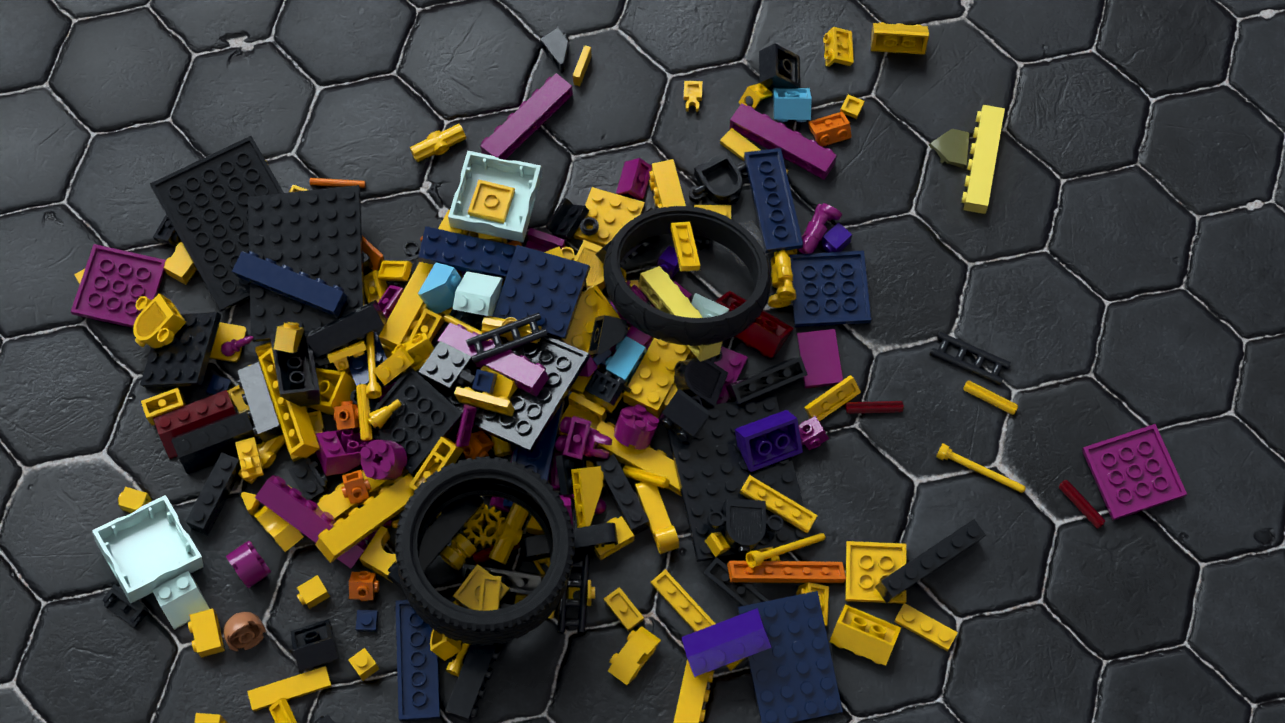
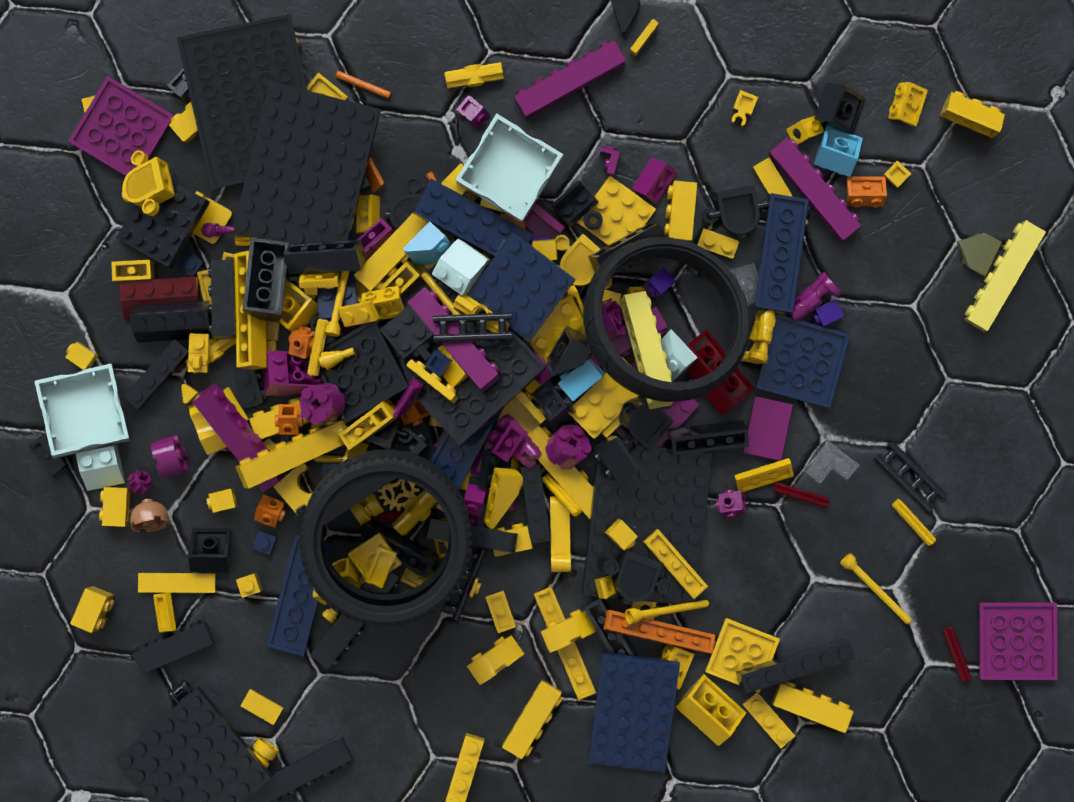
camera: 20 degrees right, 20 degrees up
(224, 601) = (139, 482): none -> magenta gear
(288, 337) = (267, 249): yellow slope -> none
(289, 283) = (283, 192): dark blue brick -> none
(394, 270) = (390, 205): yellow tile -> none
(447, 172) = (473, 112): none -> magenta bracket
(491, 201) = (503, 171): yellow tile -> none
(588, 171) = (610, 164): none -> magenta bracket
(685, 246) = (673, 292): yellow plate -> none
(696, 601) = (567, 631): none -> yellow brick
(716, 488) = (621, 535): none -> yellow brick
(726, 642) = (580, 685): dark purple slope -> none
(769, 440) = (688, 500): dark purple slope -> none
(891, 363) = (829, 459): none -> clear brick
(963, 597) = (812, 707): none -> yellow brick

